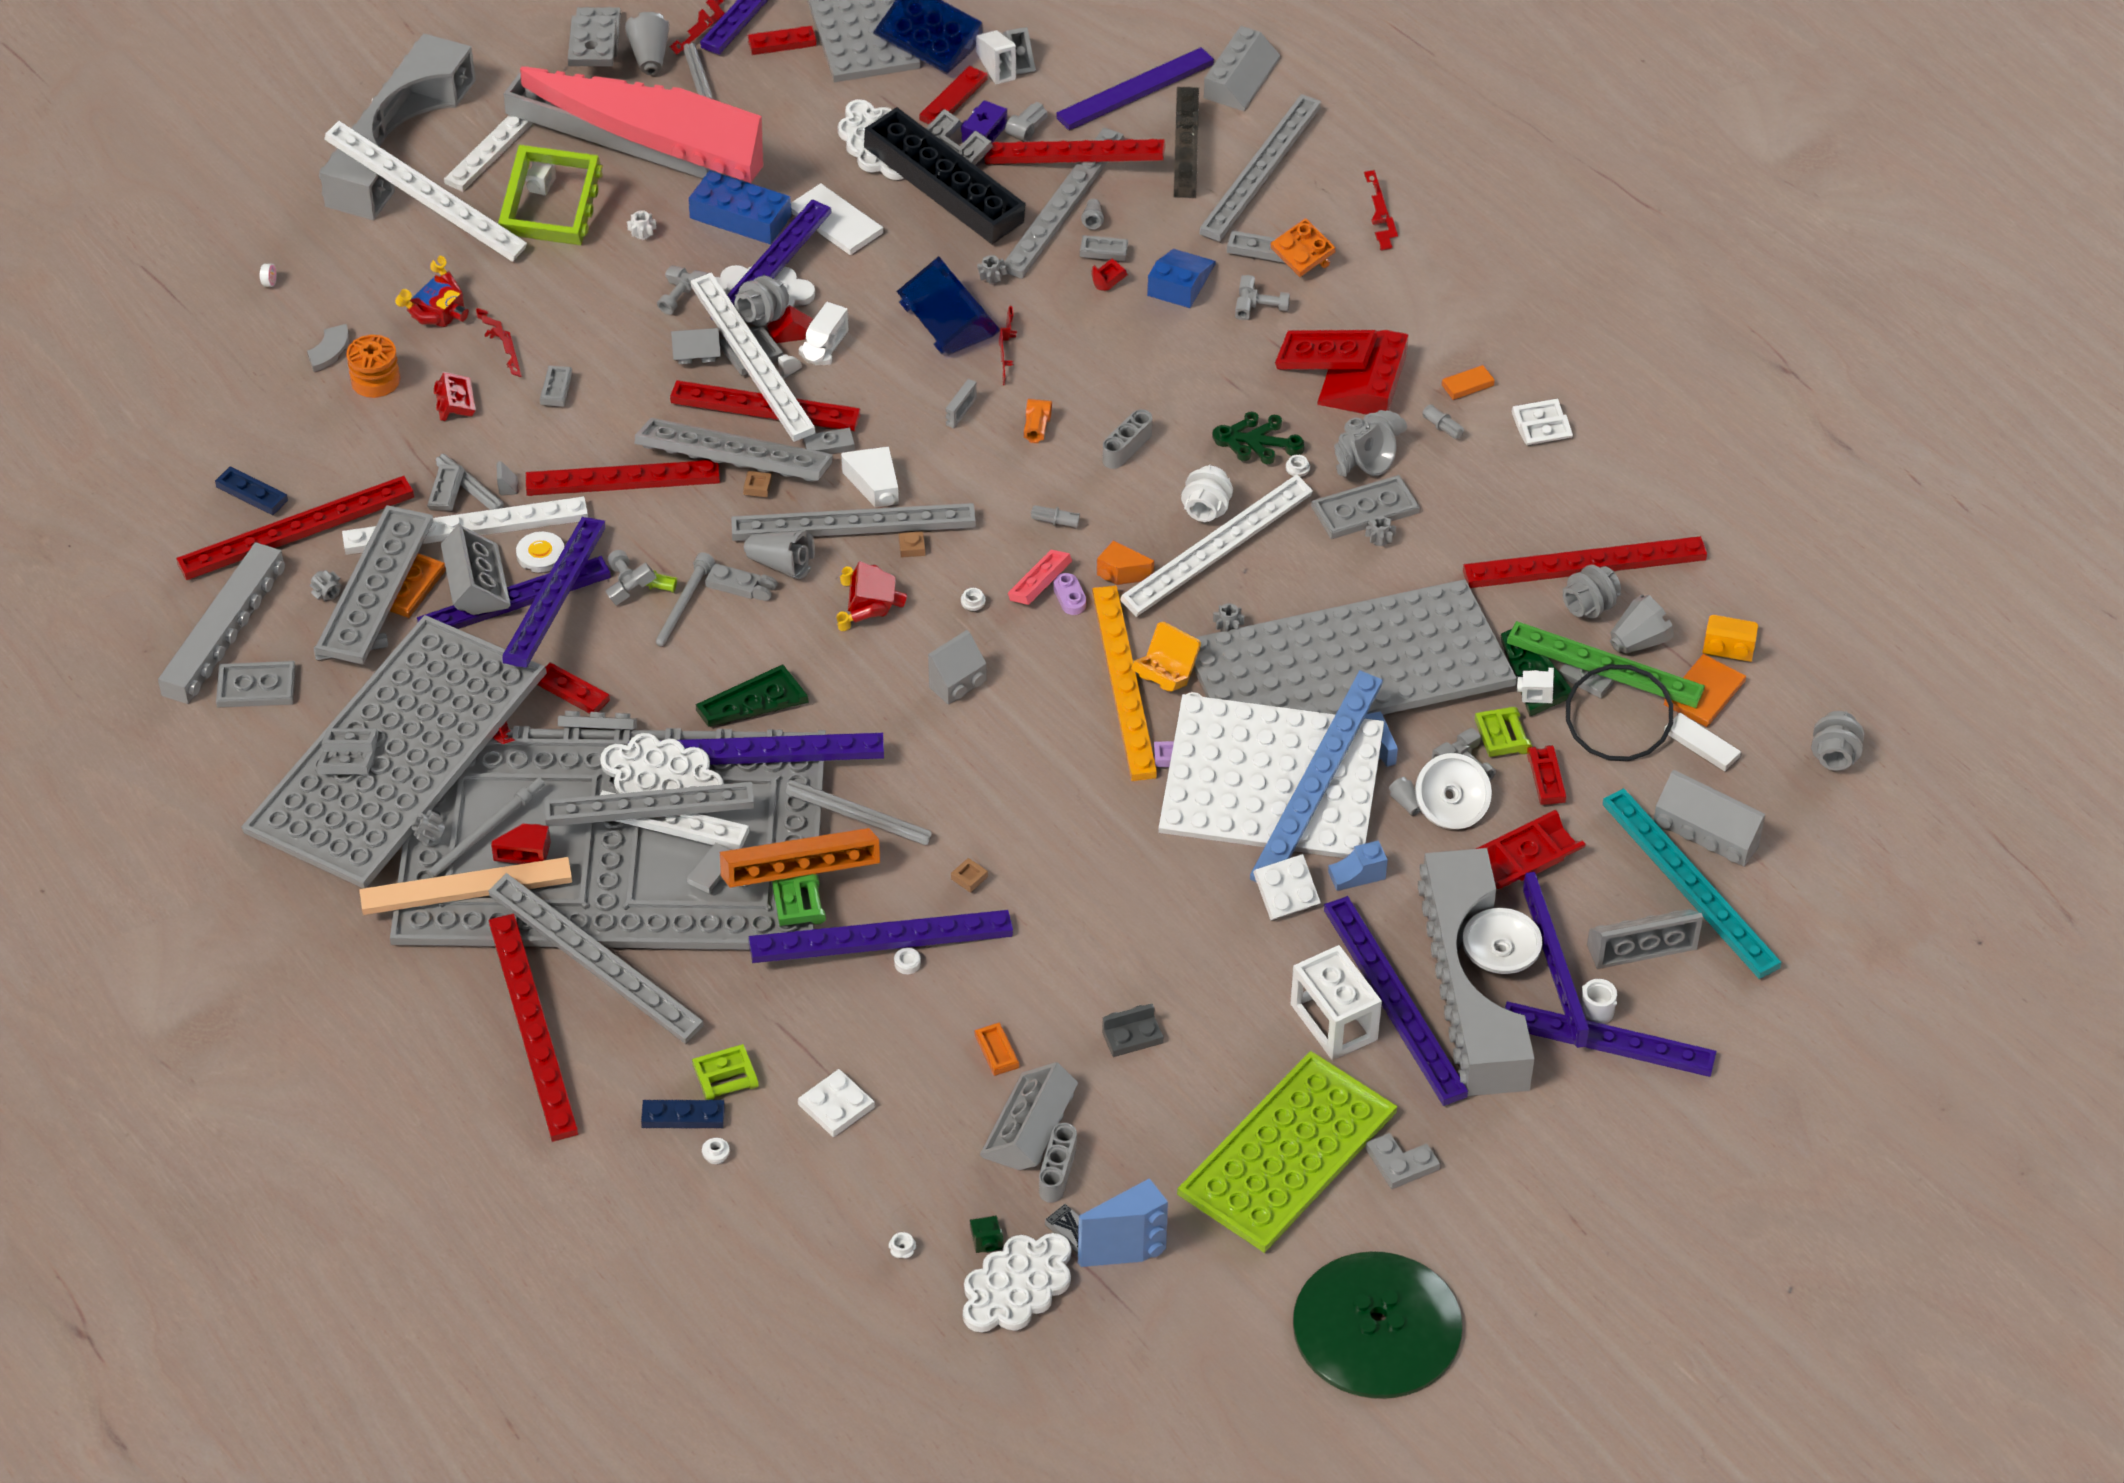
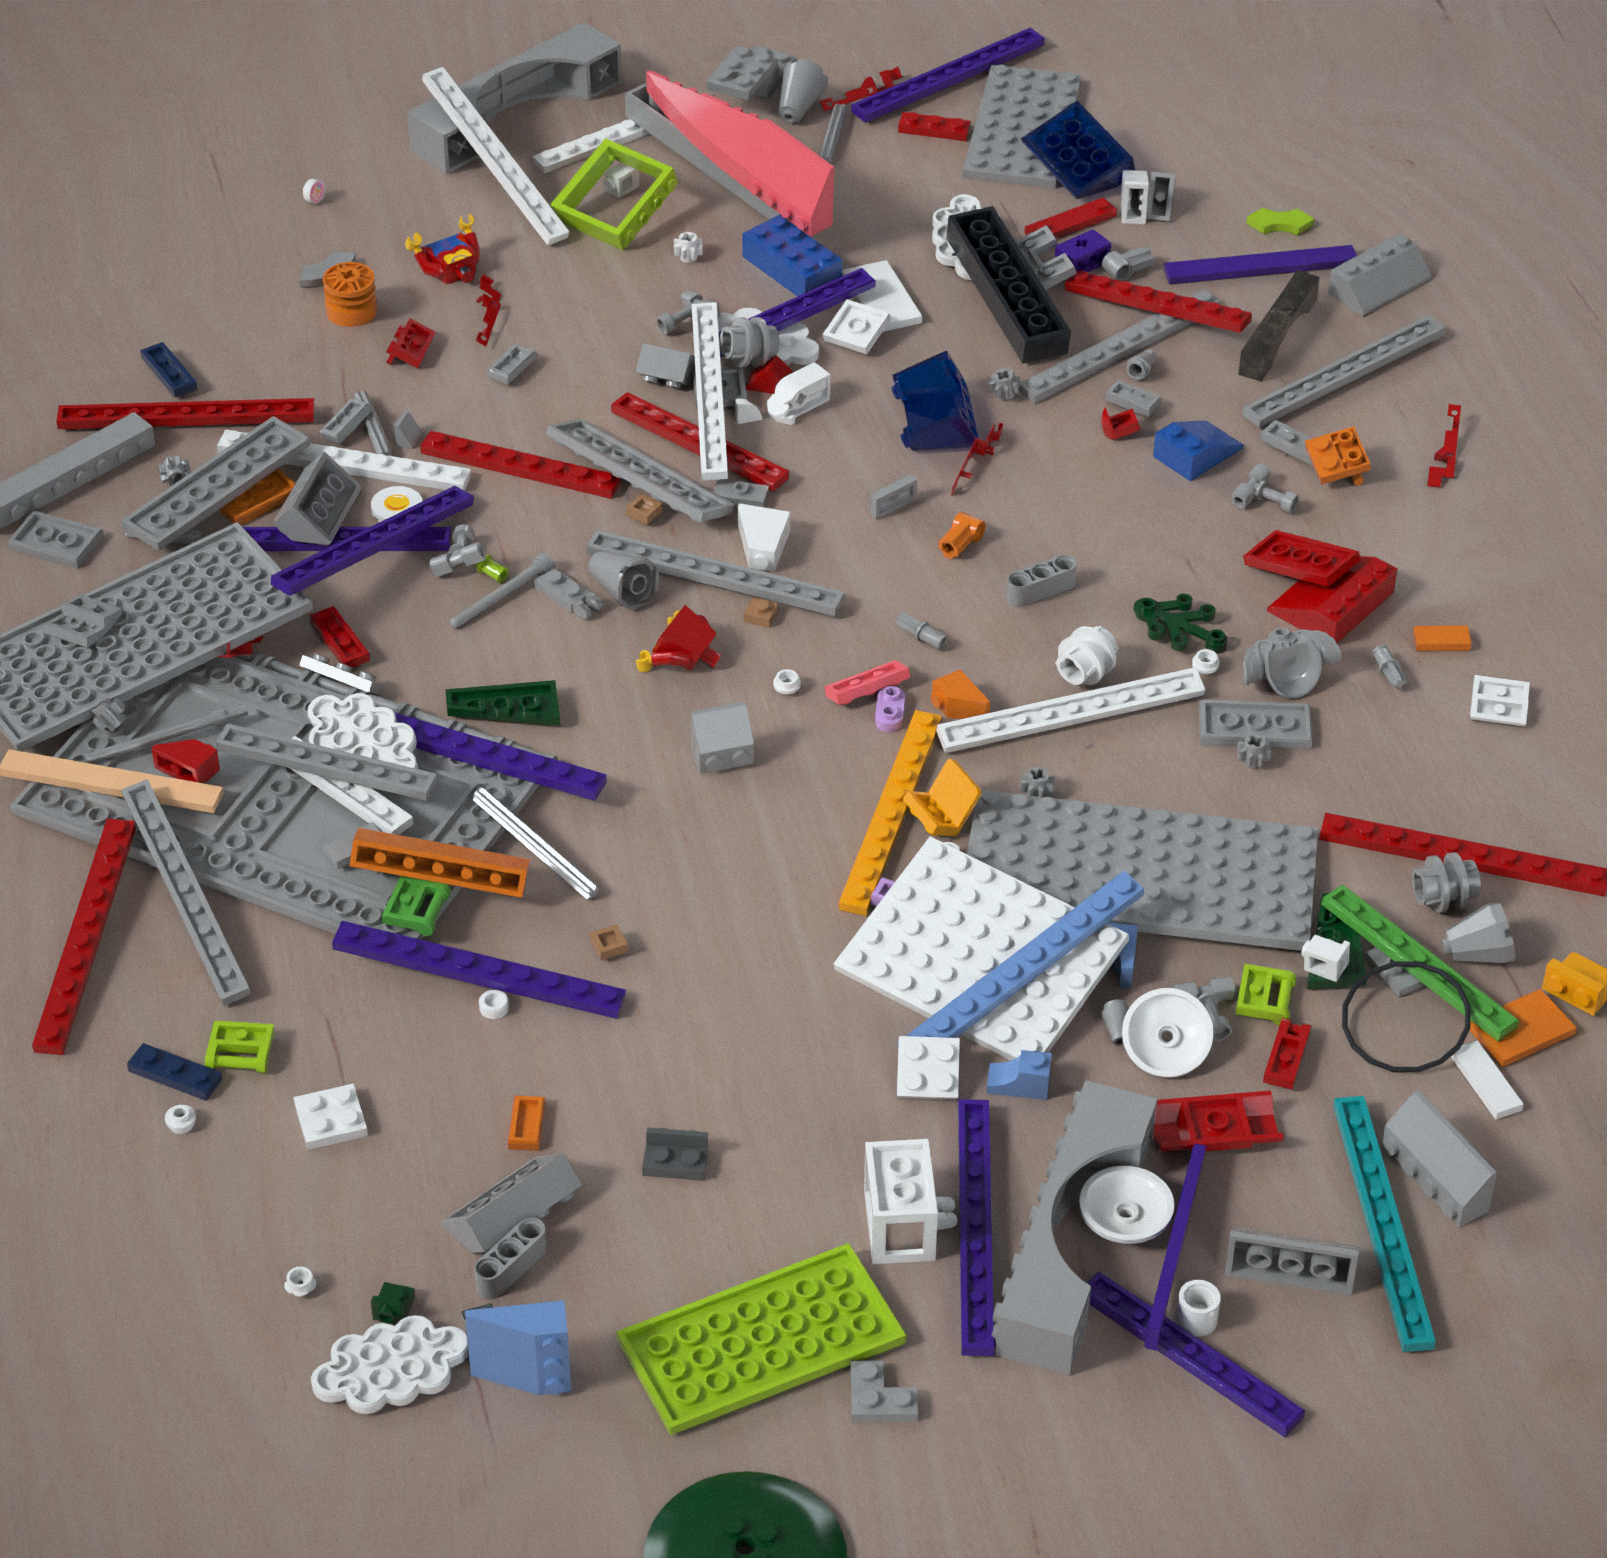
camera: 25 degrees right, 5 degrees down
(835, 255) = (856, 326): none -> white plate
(1135, 40) = (1288, 221): none -> lime tile

